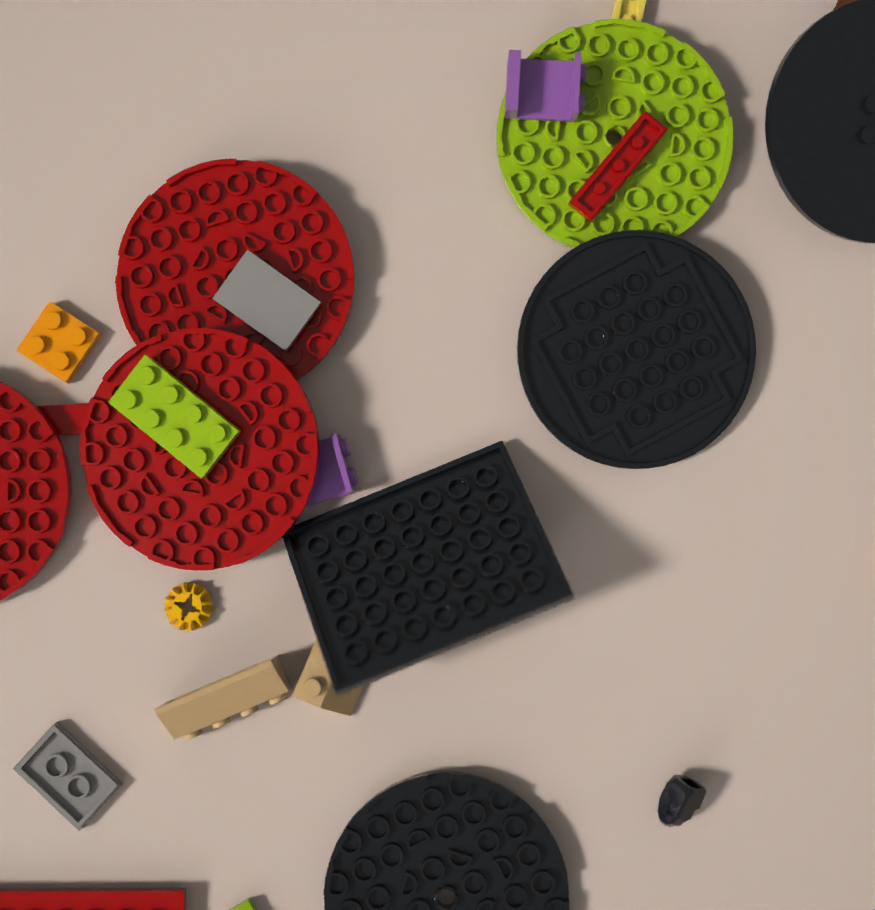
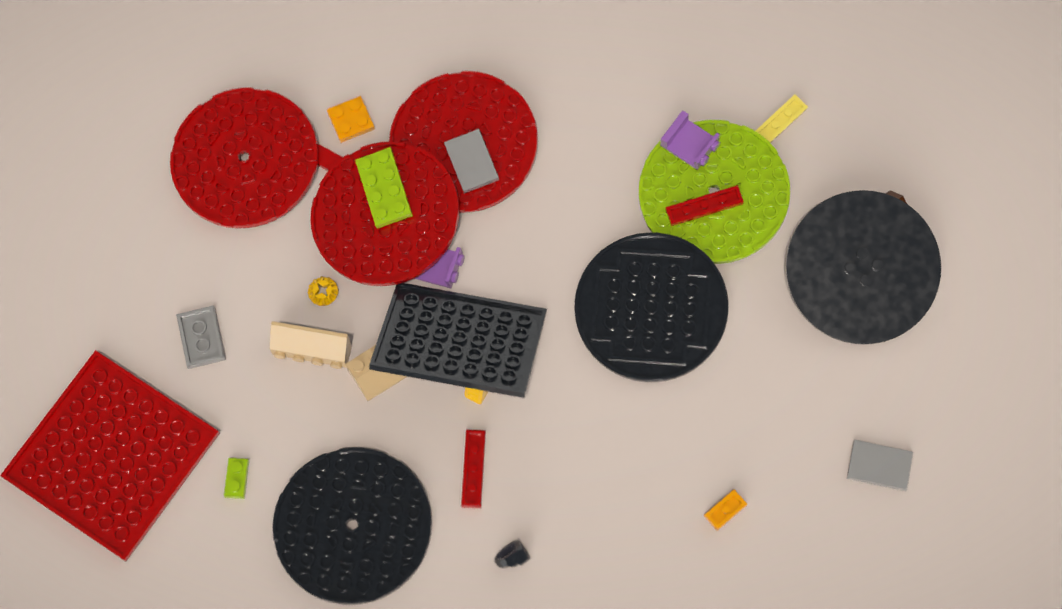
camera: 40 degrees right, 15 degrees down
(550, 716) = (473, 469): none -> red tile

